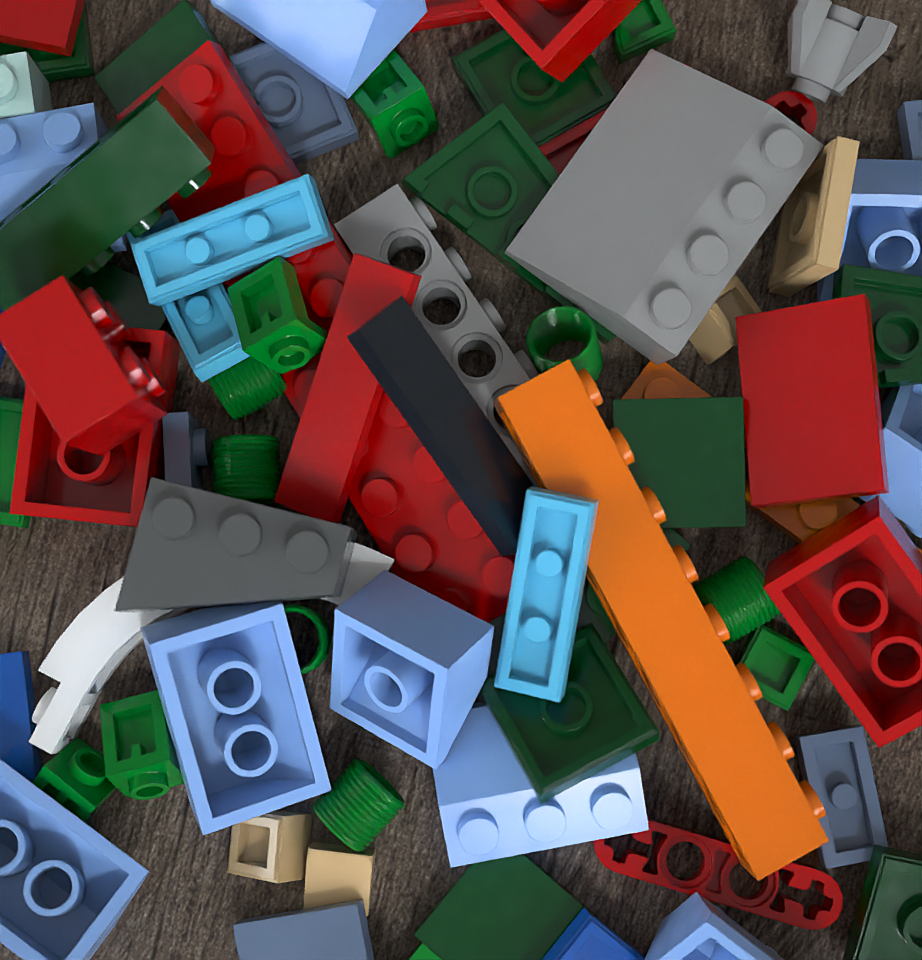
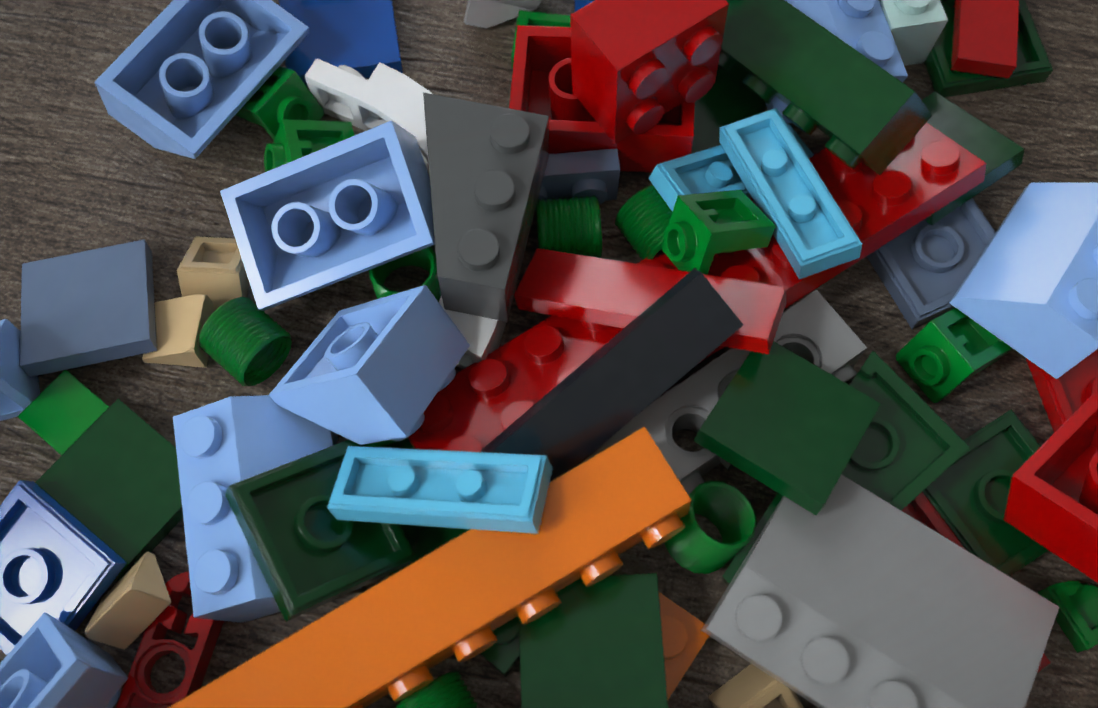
camera: 85 degrees right, 15 degrees down
(483, 265) = (788, 425): none -> dark green tile
(623, 899) = (130, 605): none -> tan slope

